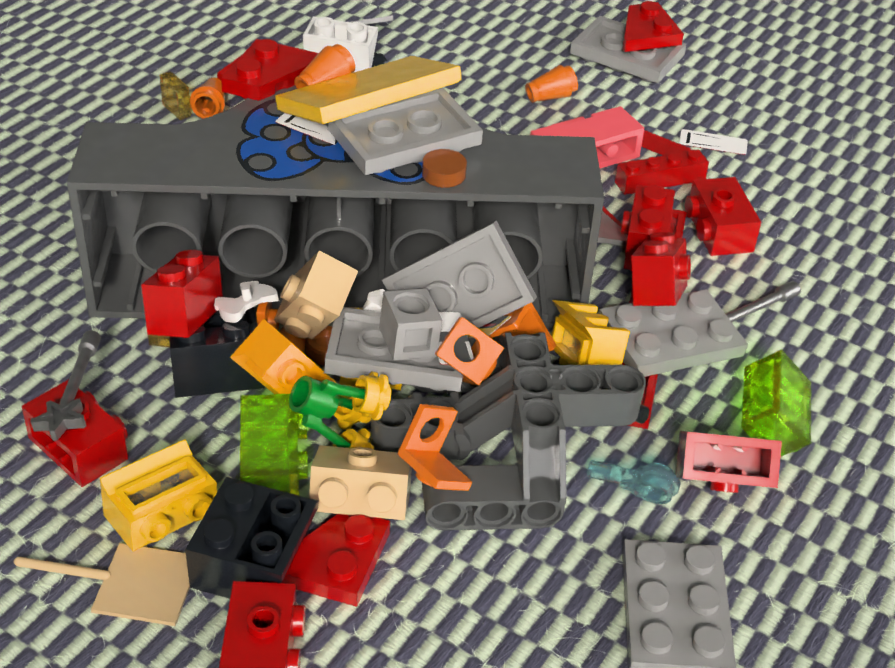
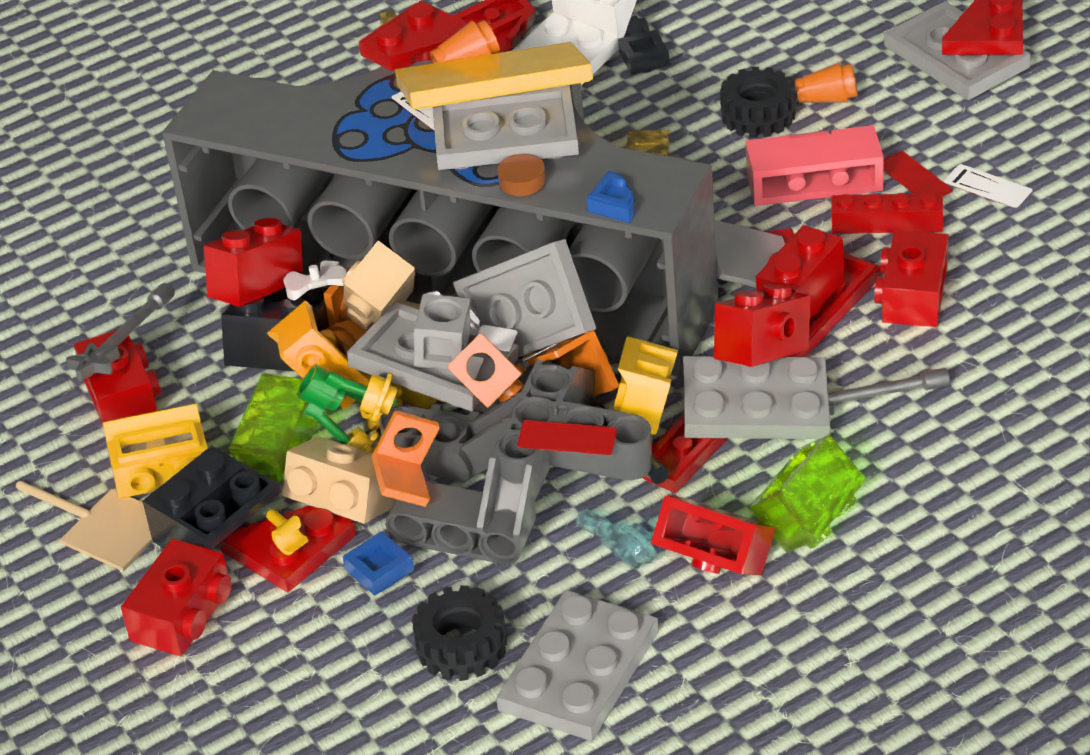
camera: 30 degrees right, 0 degrees up
(346, 548) = (286, 535): none -> yellow hand
(438, 556) = (378, 563): none -> blue plate
(507, 104) = (757, 102): none -> black tyre
(539, 177) = (612, 198): none -> blue tile
(554, 629) = (461, 654): none -> black tyre
(579, 397) = (567, 437): none -> red sticker

